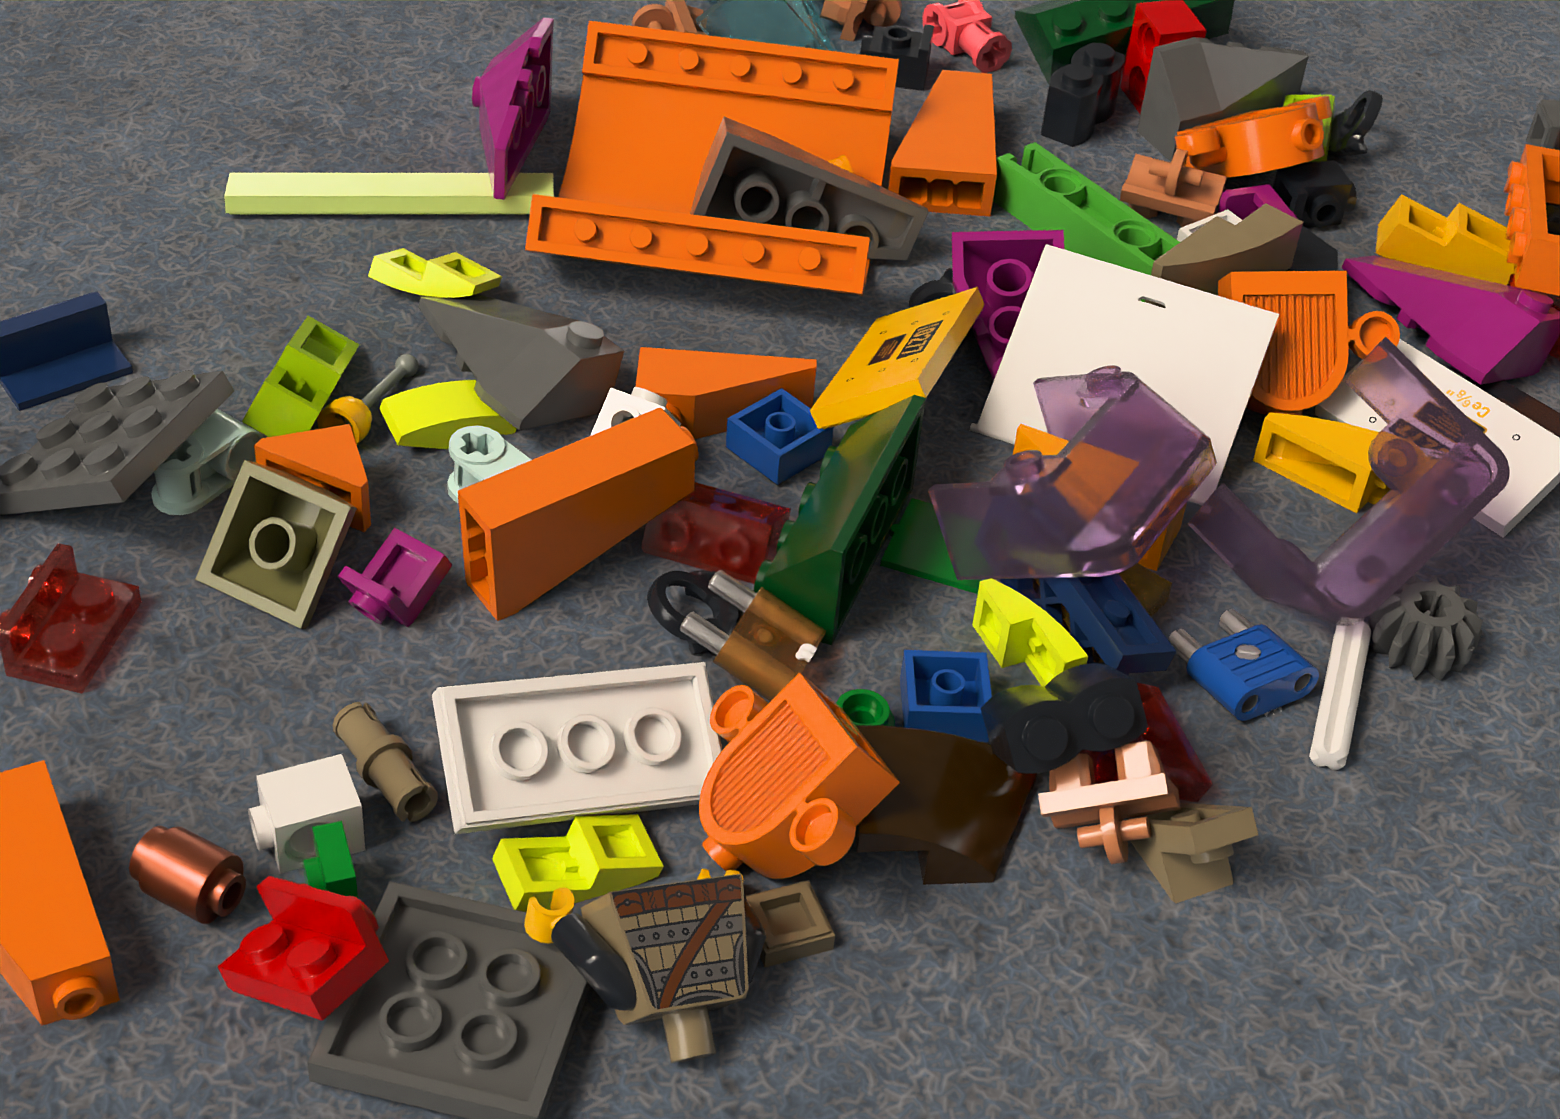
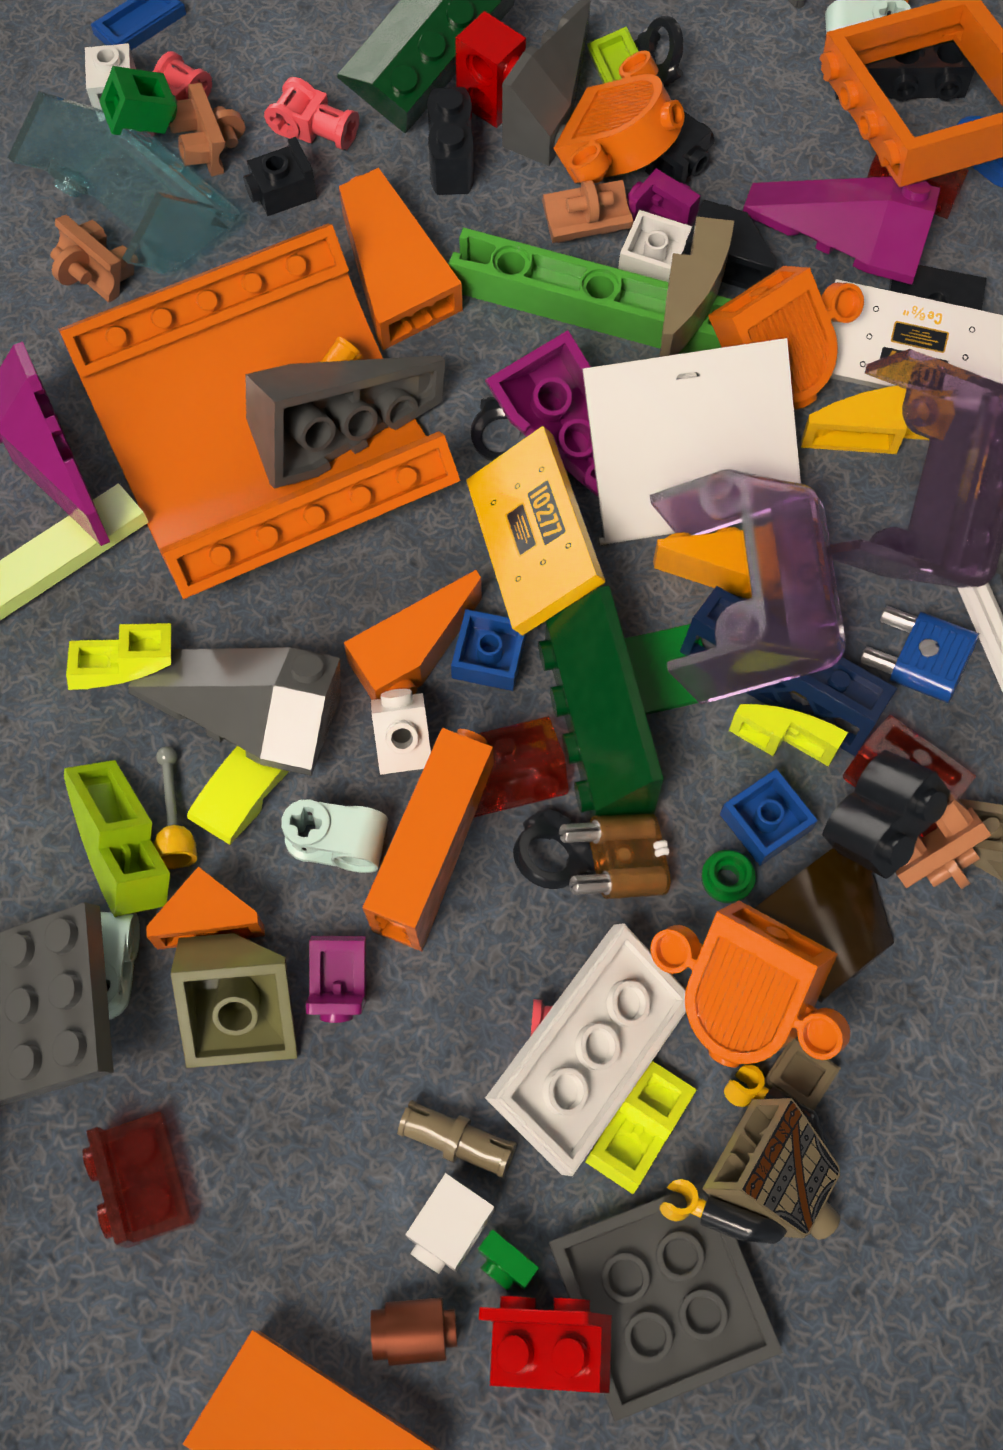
camera: 30 degrees left, 25 degrees up
(1456, 244) = (803, 143): yellow slope -> none

